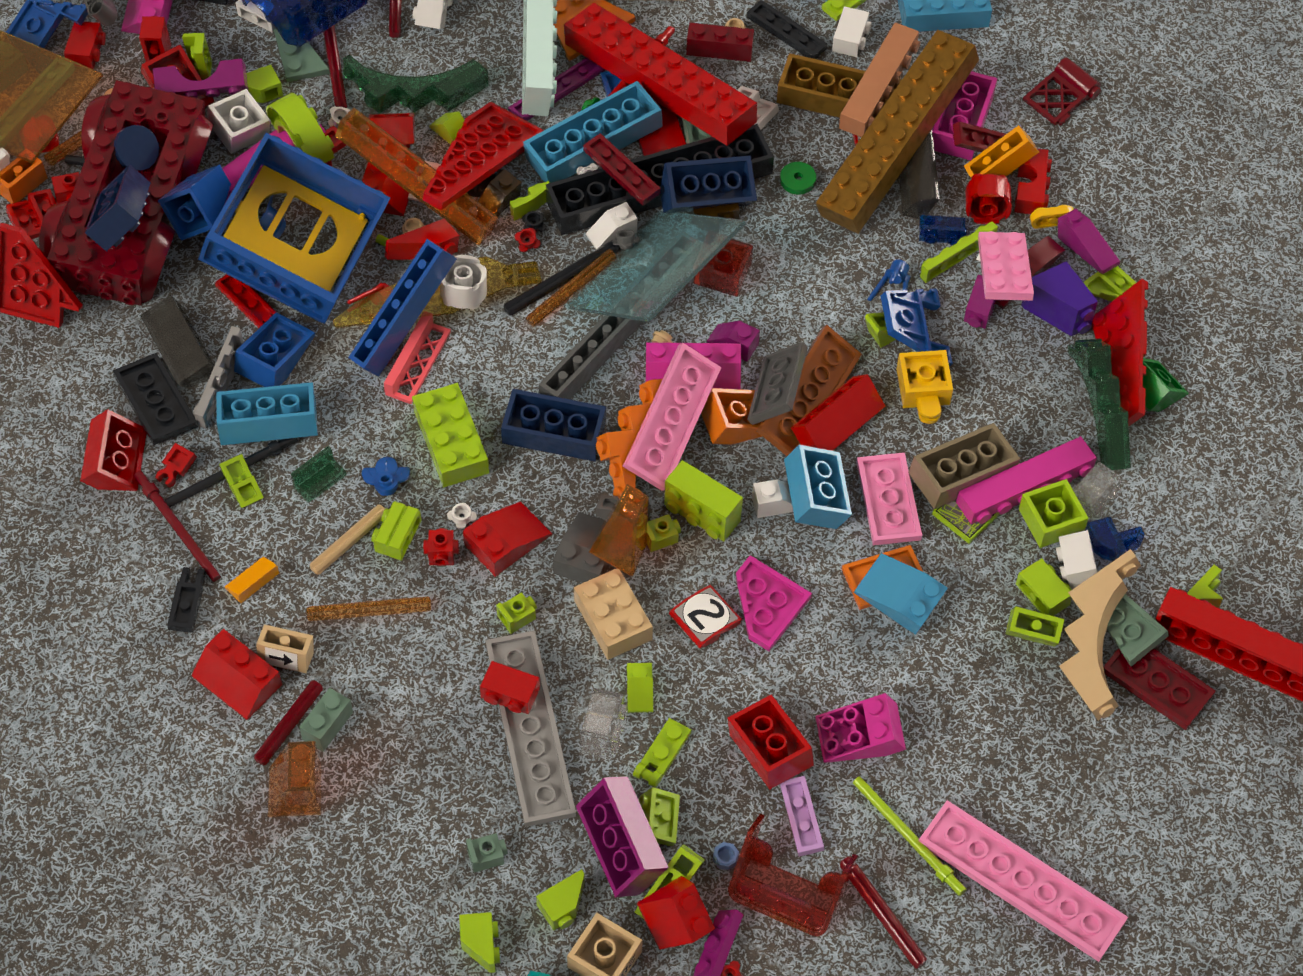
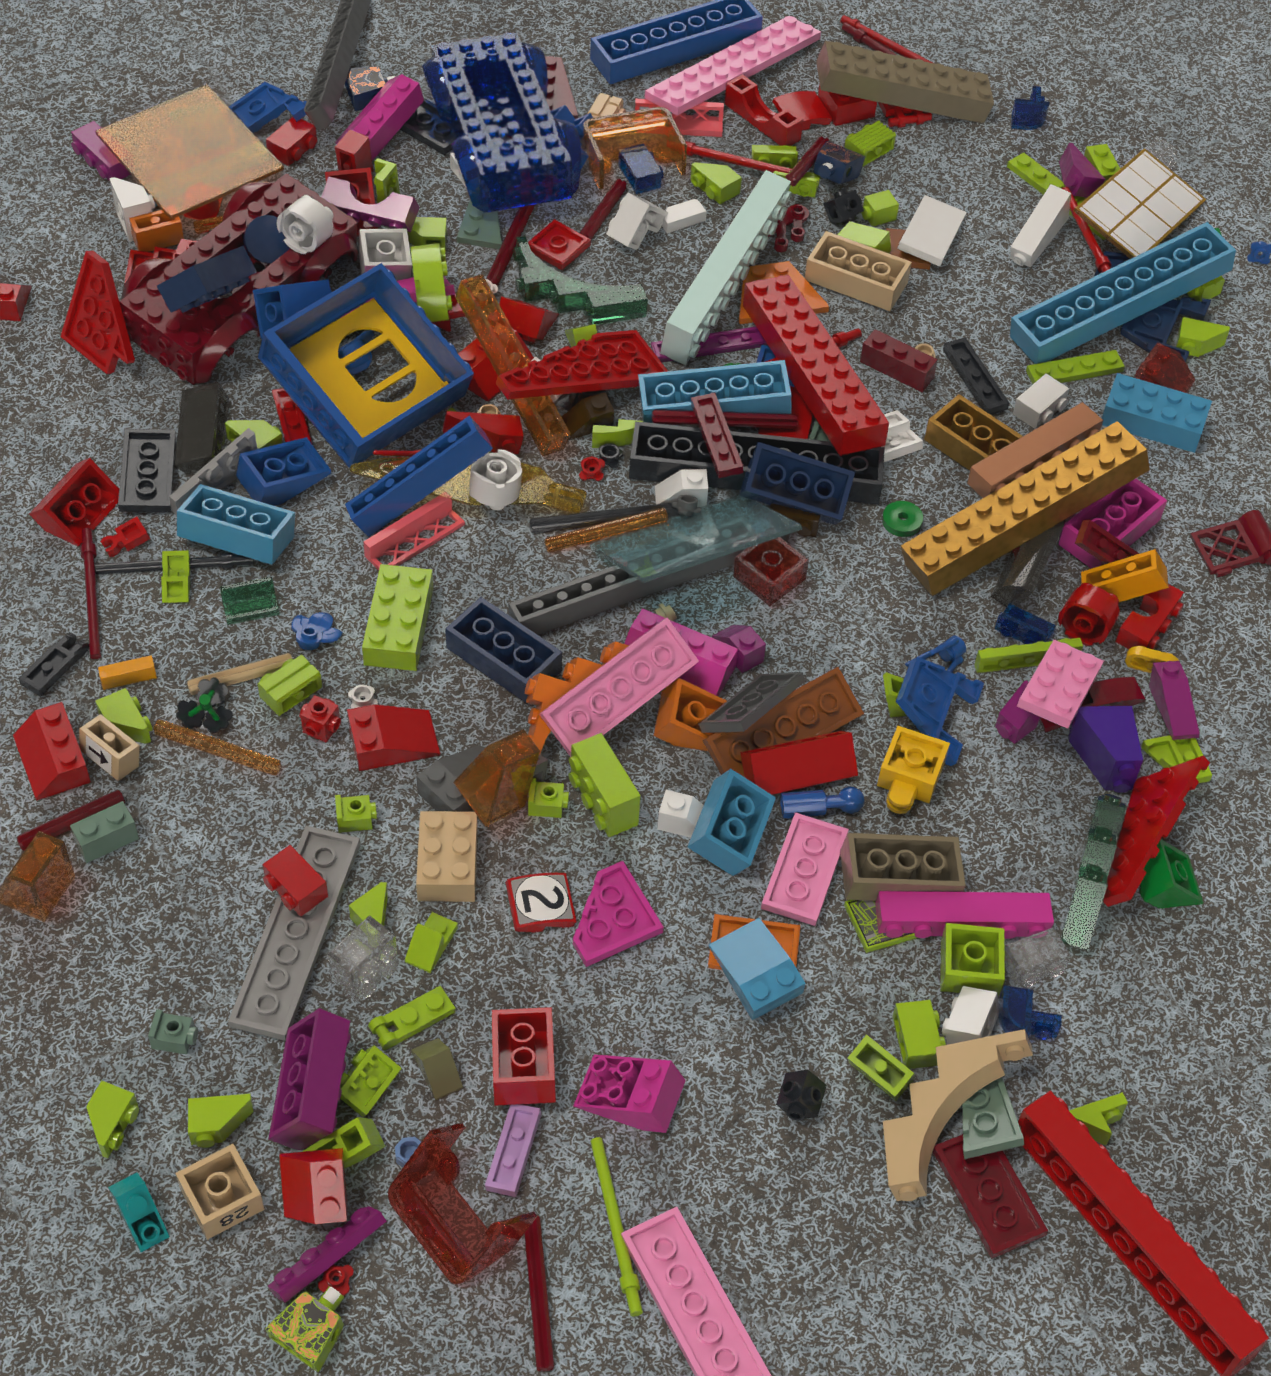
camera: 25 degrees right, 5 degrees down
(171, 122) = (305, 224): none -> white brick
(218, 329) = (265, 434): none -> lime slope
(277, 613) = (125, 714): none -> lime slope
(339, 568) = (210, 694): none -> black plant
(378, 49) = (558, 244): none -> red plate
(579, 684) = (371, 903): none -> lime slope
(626, 146) = (758, 420): none -> dark red axle
(706, 781) = (437, 1068): none -> olive slope
(869, 441) = (817, 802): none -> blue piece
(988, 674) = (801, 1095): none -> black brick

